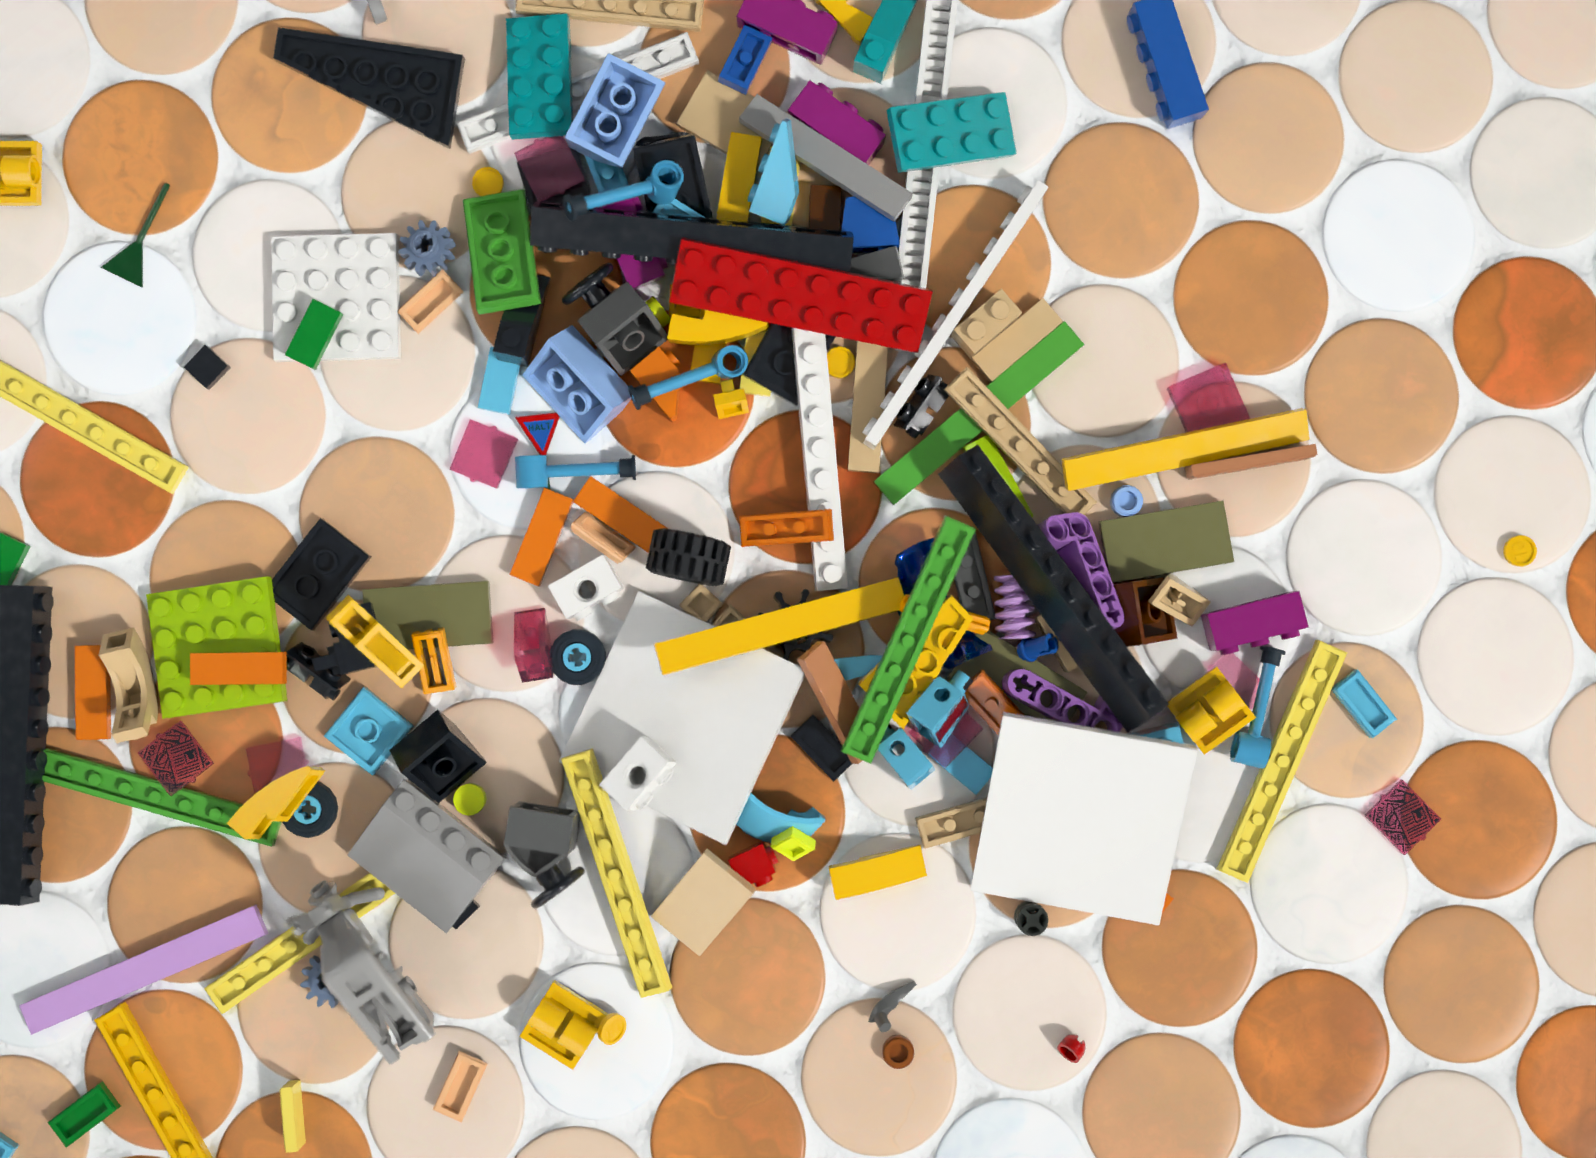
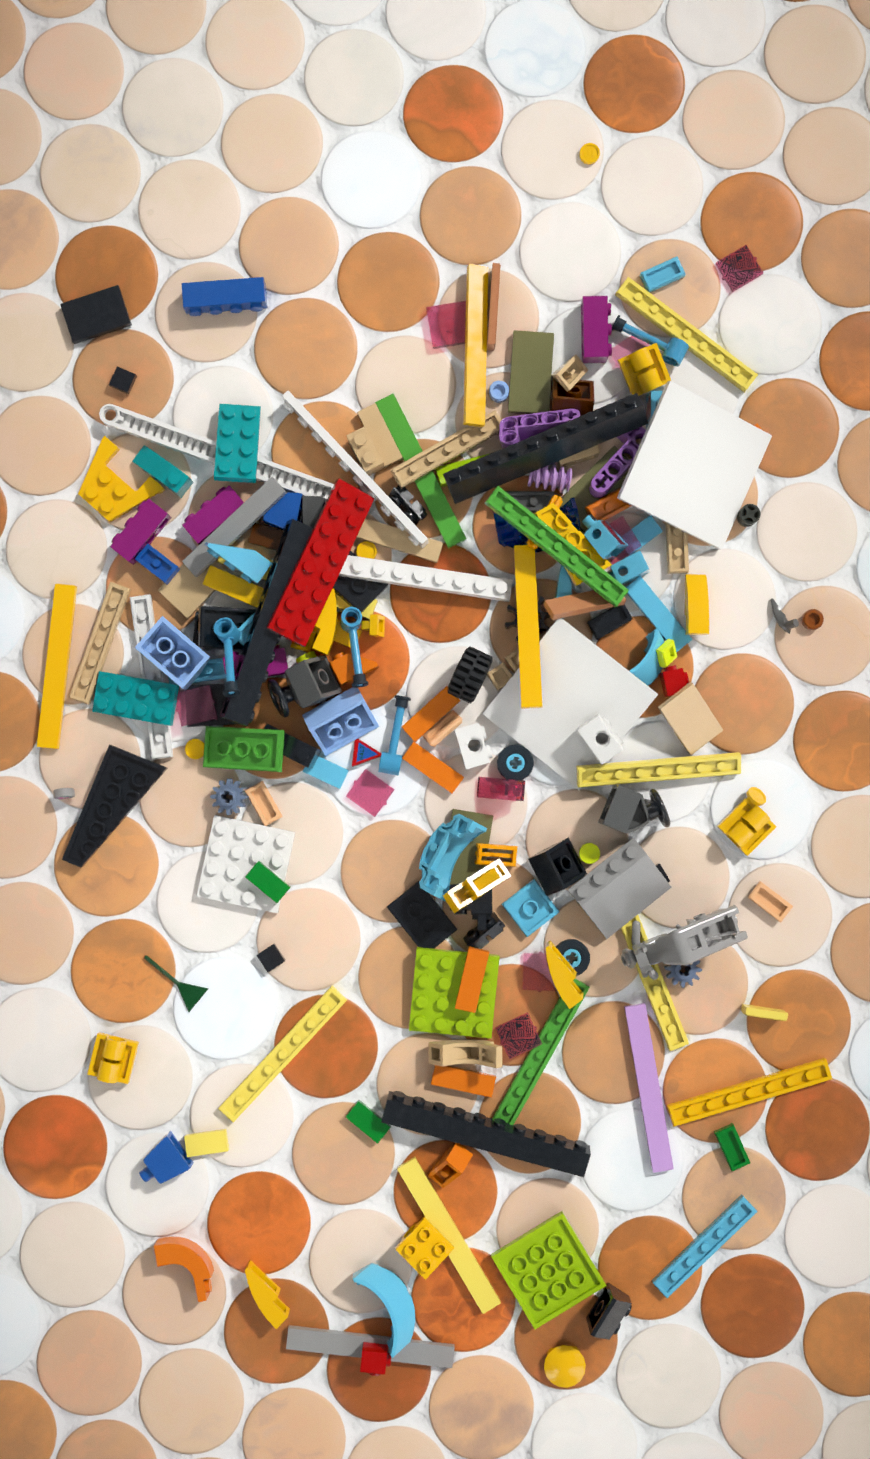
camera: 75 degrees left, 0 degrees up
(415, 581) = (443, 851): none -> medium azure windscreen
(786, 527) = (465, 609): orange tile -> none
(851, 816) = (657, 613): none -> medium azure tile
(1031, 649) = (579, 468): blue pin -> none
(1071, 1048) = (836, 509): red hinge -> none

